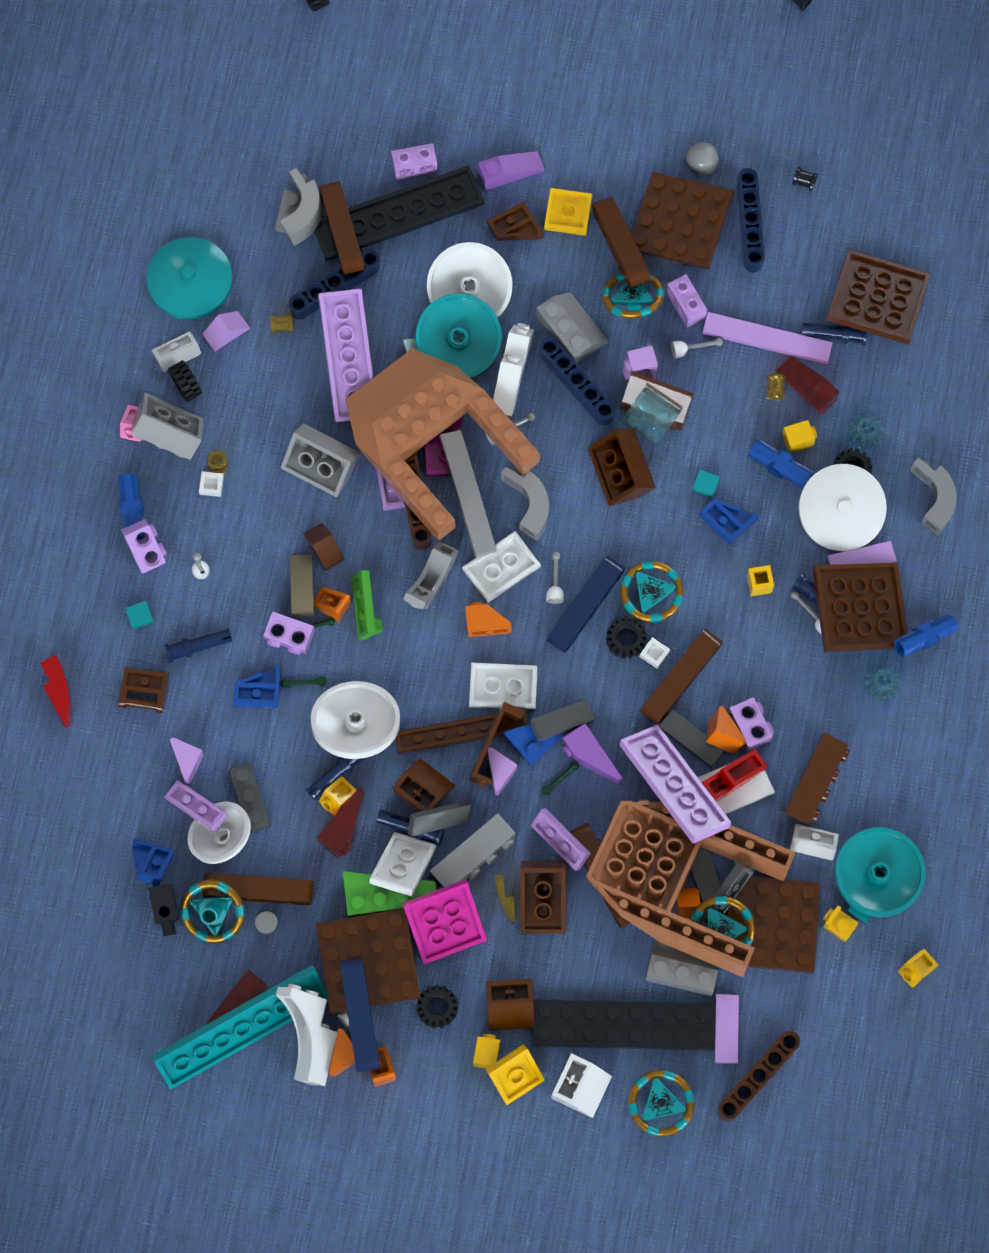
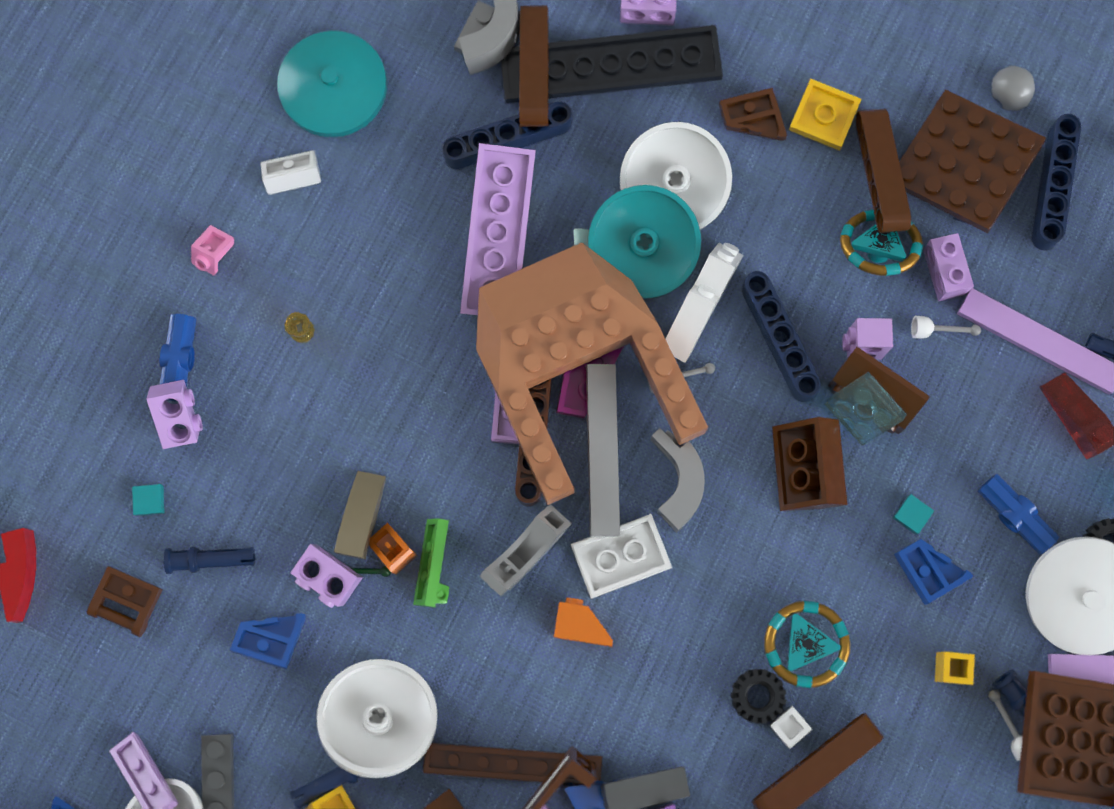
camera: 20 degrees right, 5 degrees up
(167, 426) = (247, 266): light grey slope -> none
(184, 381) = (286, 213): black tyre -> none
(187, 757) = (151, 708): lavender slope -> none
(199, 566) = (238, 457): white hinge -> none
(211, 484) = (284, 353): white plate -> none
(225, 329) = (357, 159): lavender slope -> none
(281, 323) = (419, 168): clear yellow bush -> none
(319, 460) = (428, 356): light grey slope -> none
(321, 681) = (352, 647): dark green hinge -> none
(323, 546) = (402, 469): reddish brown slope -> none
(501, 683) = (582, 717): white tile -> none
(509, 168) = (764, 41): medium lavender slope -> none
(555, 594) = (681, 611): white hinge -> none
(570, 326) = (791, 263): light grey slope -> none
(585, 604) = (716, 637): dark blue beam -> none
(775, 386) = (1030, 416): clear yellow bush -> none
(799, 436) = (1051, 483): yellow brick -> none

